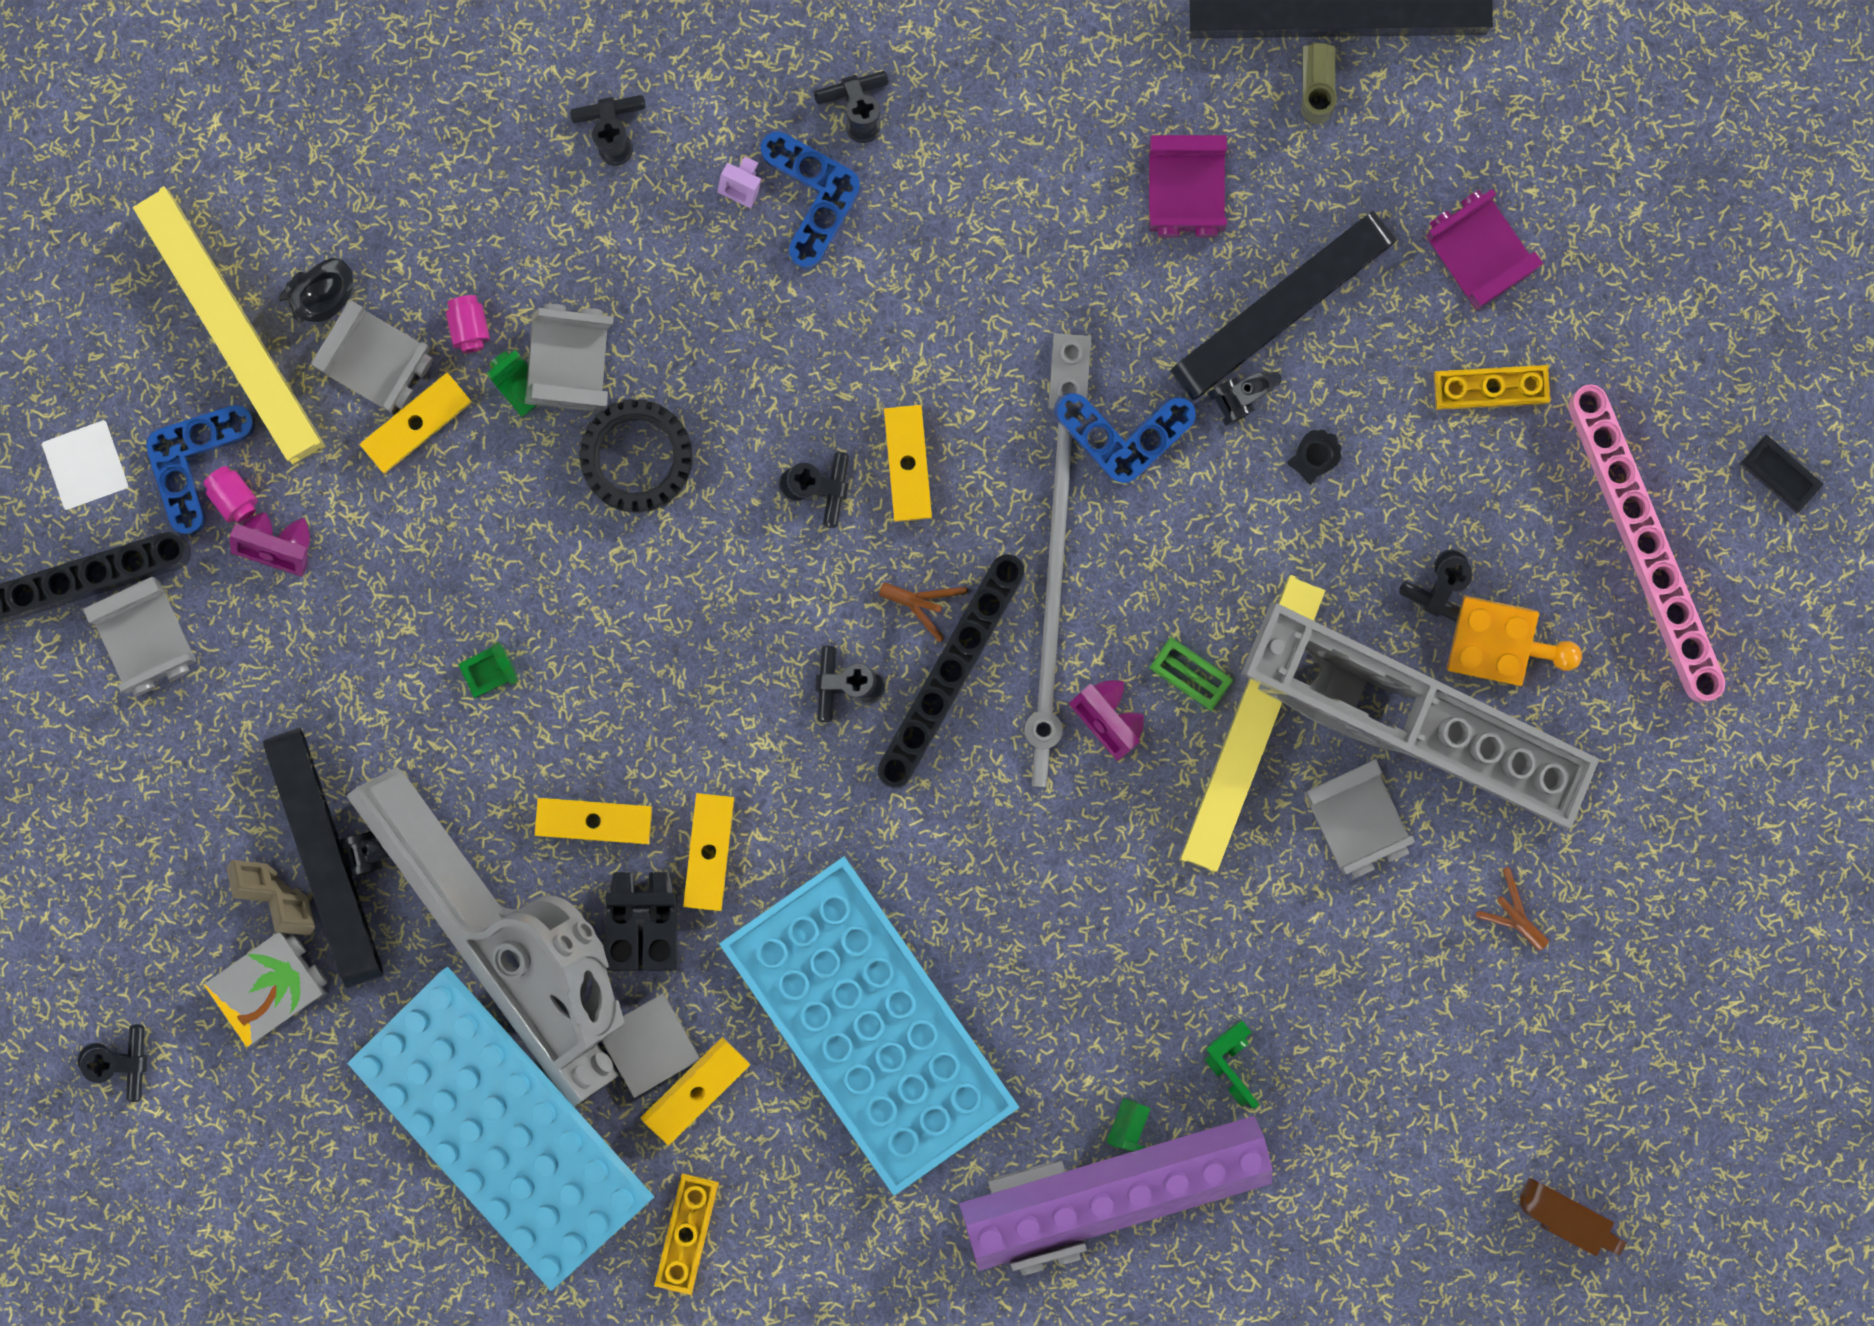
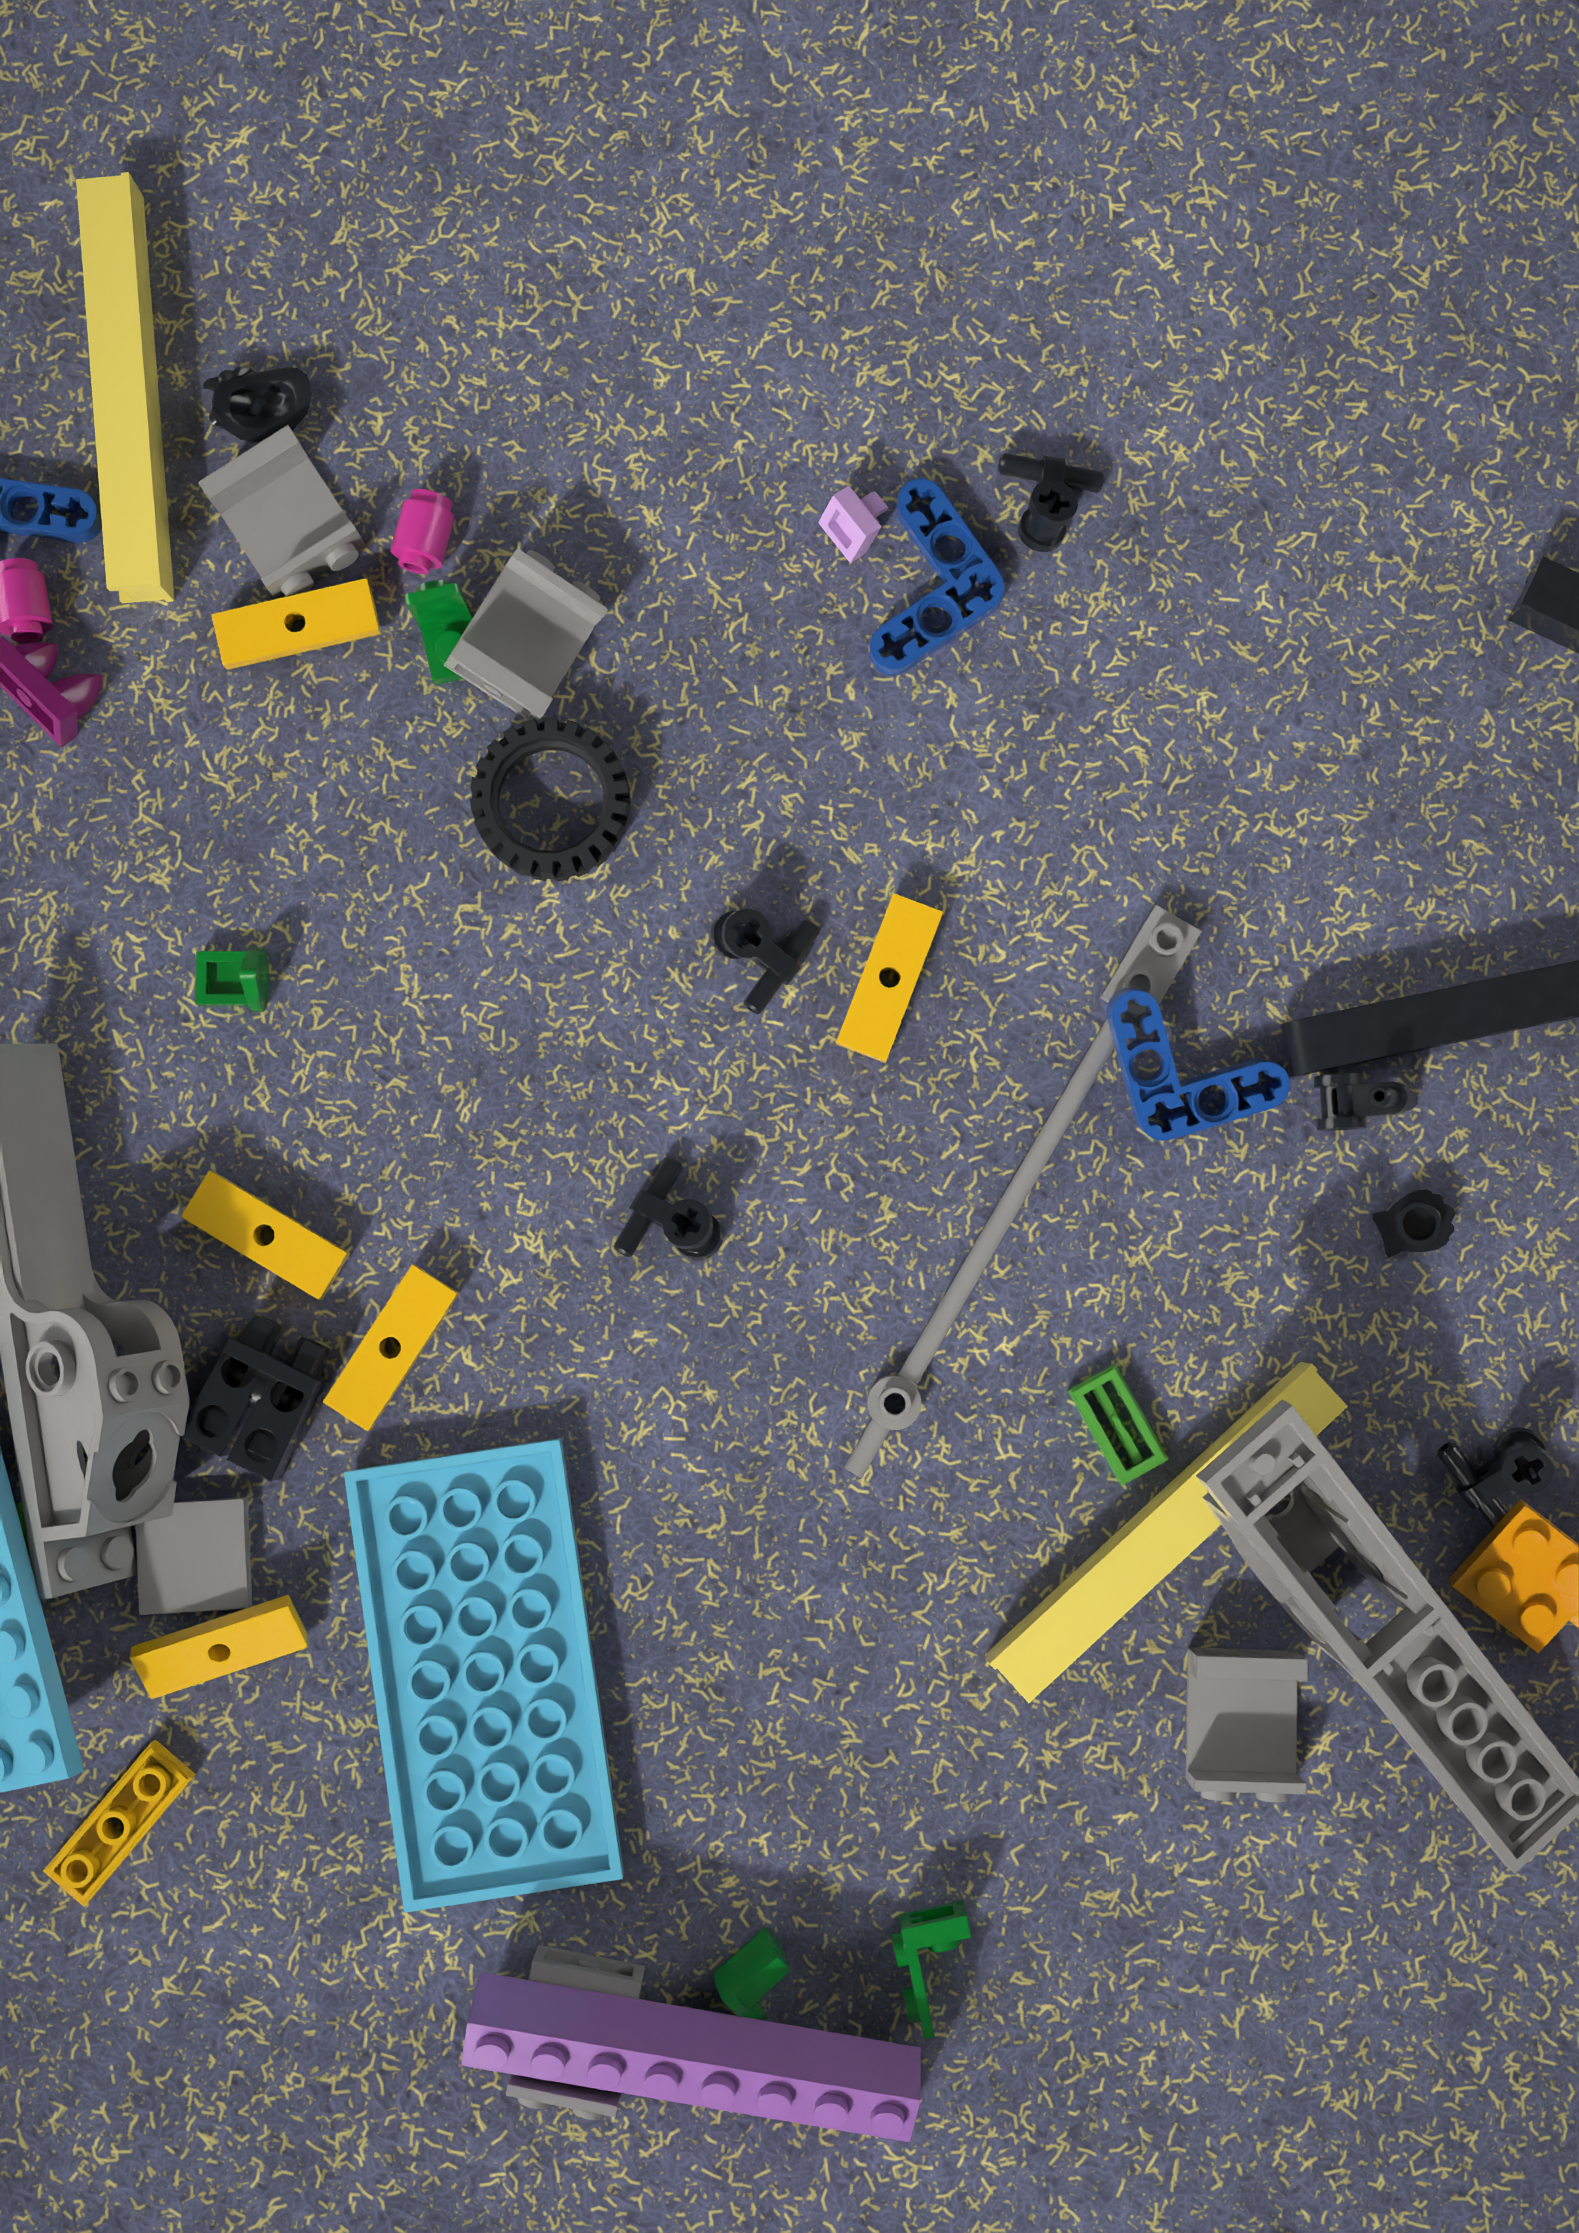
camera: 25 degrees right, 0 degrees up
(609, 127) = (719, 375): black piece -> none
(917, 600) = (814, 1157): dark orange plant -> none
(956, 653) = (840, 1262): black beam -> none
(1096, 709) = (975, 1409): magenta tile -> none
(1187, 185) = (1417, 798): magenta panel -> none
(1518, 915) = (1388, 1957): dark orange plant -> none

